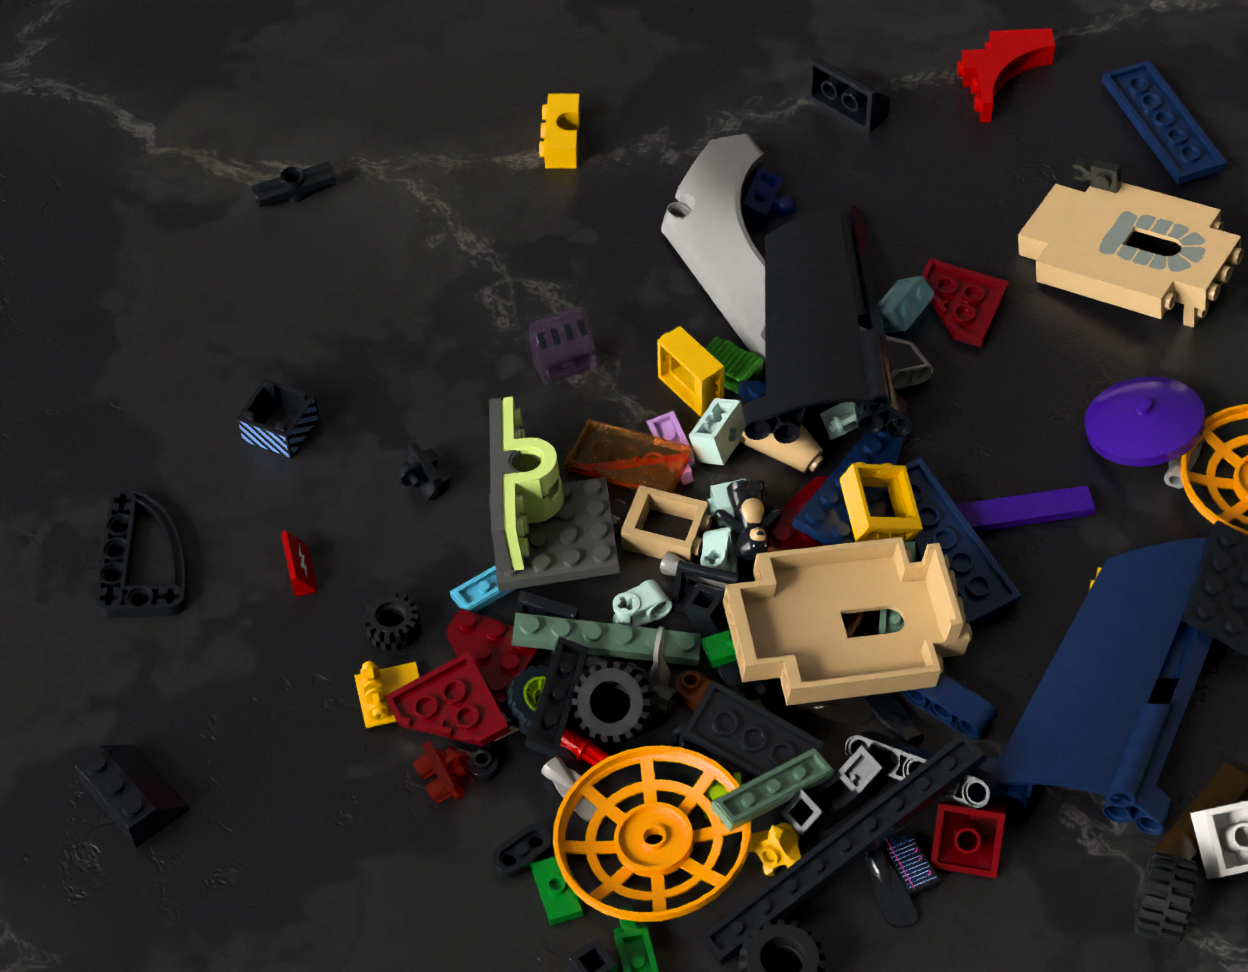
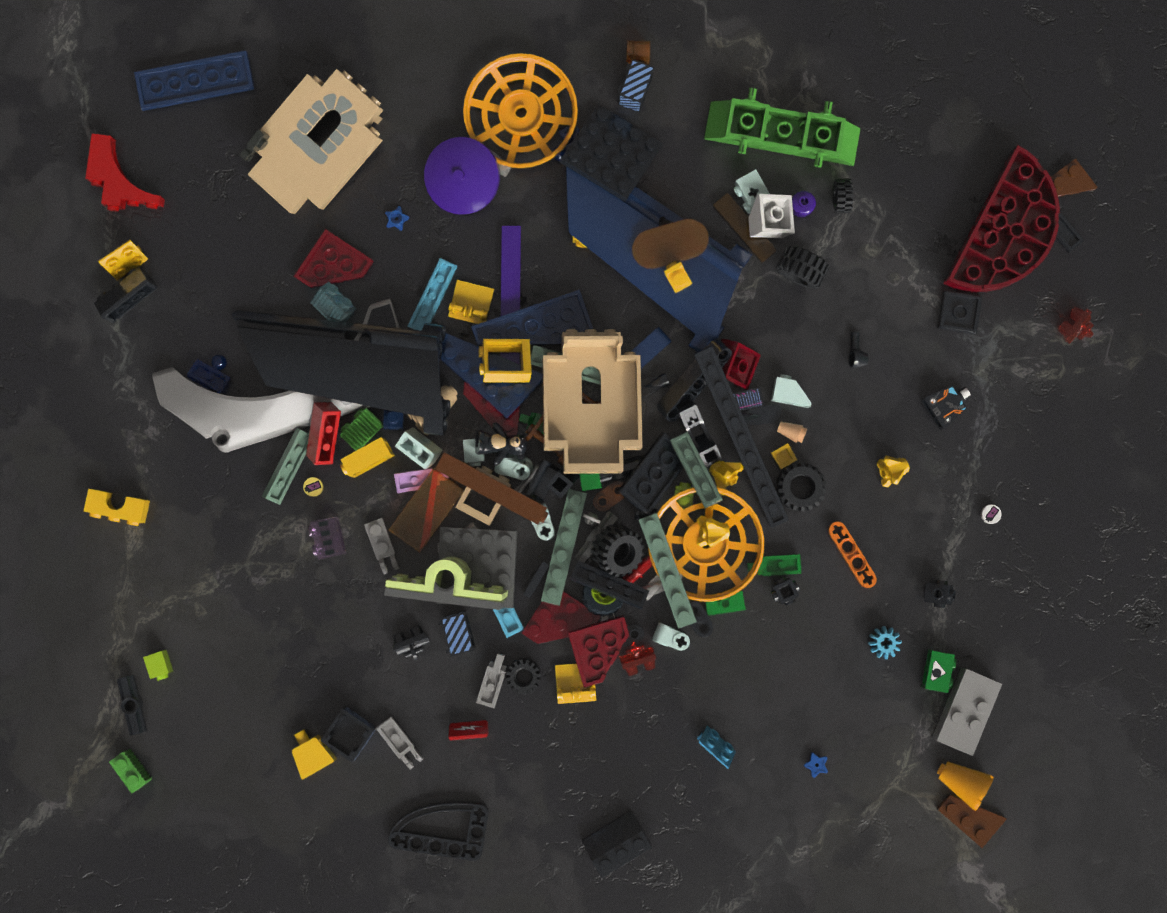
camera: 85 degrees left, 35 degrees up
(203, 195) = (130, 770): none -> bright green brick
(239, 378) = (311, 754): none -> yellow torso
(271, 482) = (398, 741): none -> light grey hinge
(306, 905) = (717, 746): none -> dark azure hinge
(352, 202) = (158, 665): none -> lime brick
(374, 580) = (492, 682): none -> light grey hinge
(447, 518) = (458, 633): none -> black container
(485, 815) = (667, 636): none -> light aqua piece
(565, 418) = (381, 543): none -> light grey hinge
(595, 780) = (667, 570): none -> sand green plate
(633, 329) = (313, 486): none -> light yellow tile
(657, 294) = (287, 467): none -> sand green plate
(674, 821) = (711, 531): none -> yellow rock
(677, 517) = (492, 489): none -> reddish brown brick
(715, 310) = (323, 433): none -> red brick
(833, 936) = (784, 456): none -> yellow plate
(876, 945) = (792, 431): none -> light nougat cone
(897, 80) = (123, 259): none -> yellow hinge
(943, 925) = (789, 392): none -> light aqua slope
(958, 466) = (470, 302): none -> yellow hinge
(960, 423) = (432, 294): none -> medium azure tile
(1055, 358) = (401, 218): none -> blue plate
(1086, 700) = (677, 276): none -> yellow bracket
(1136, 684) = (670, 243): none -> clear orange tile

